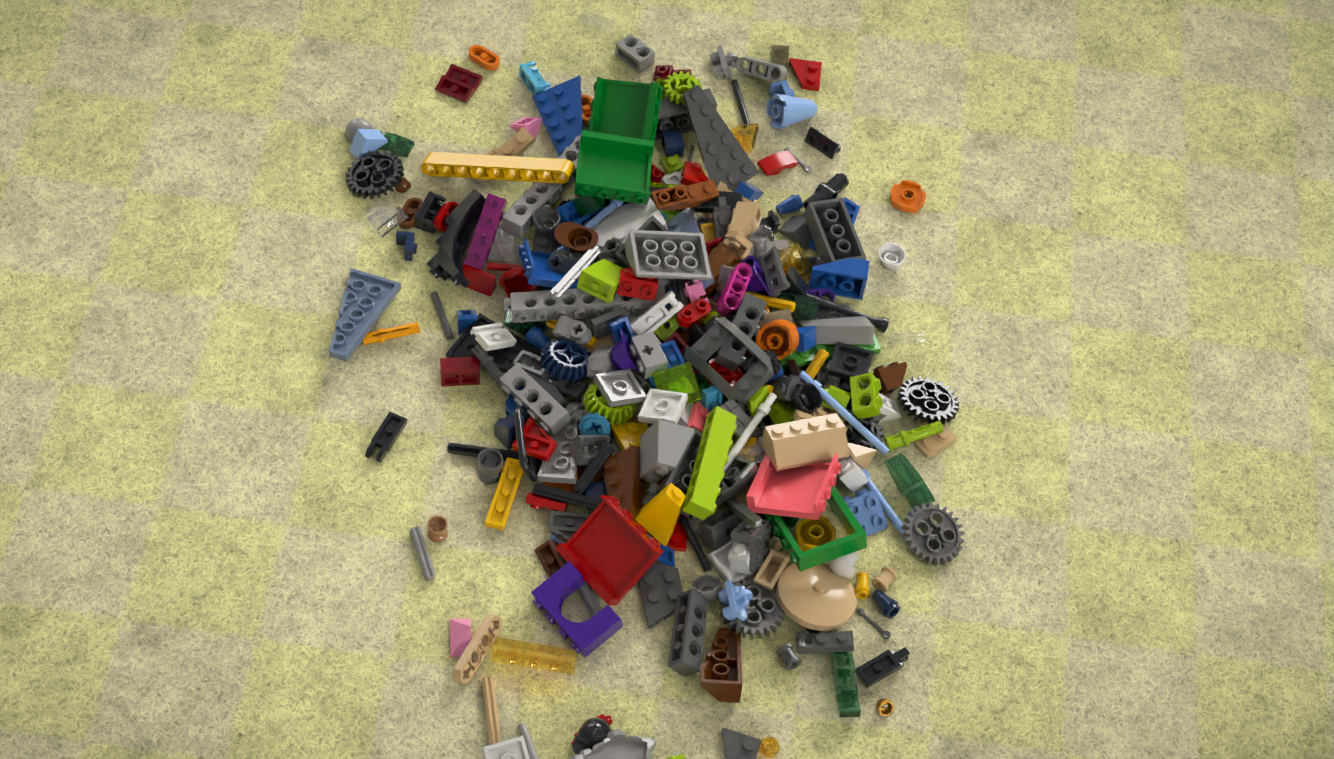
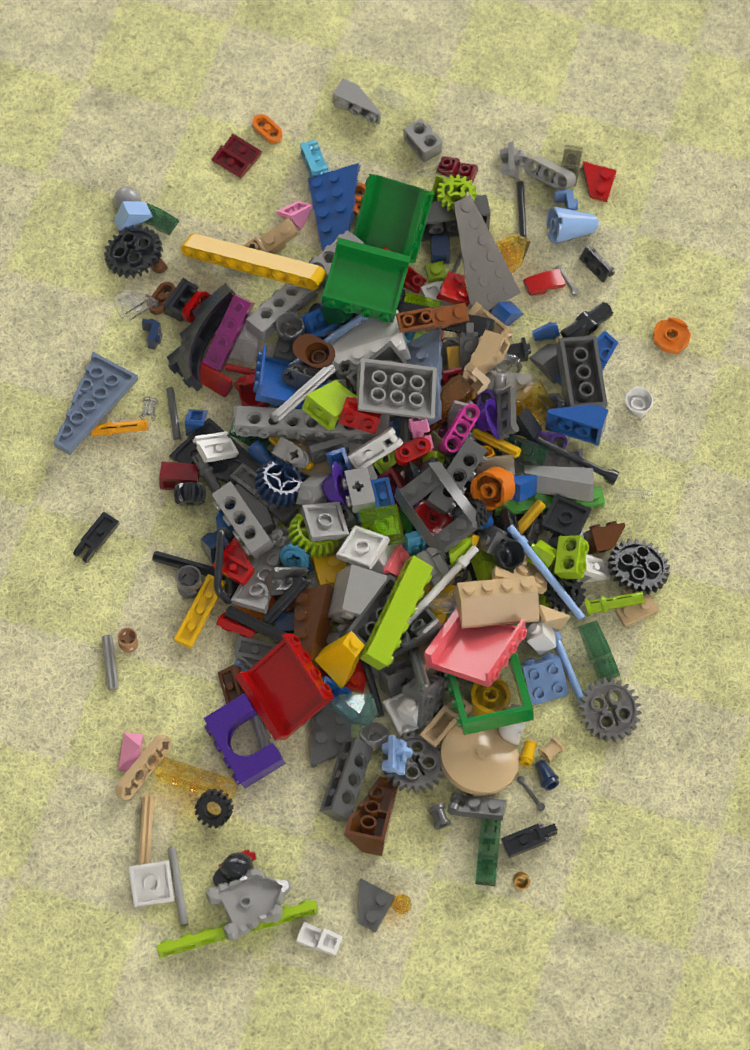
camera: 15 degrees right, 10 degrees up
(417, 312) = (149, 408): none -> clear bush
(474, 384) = (189, 494): none -> black gear
(563, 25) = (352, 98): none -> light grey slope
(568, 669) = (221, 800): none -> black tyre
(683, 563) = (356, 708): none -> clear light blue slope

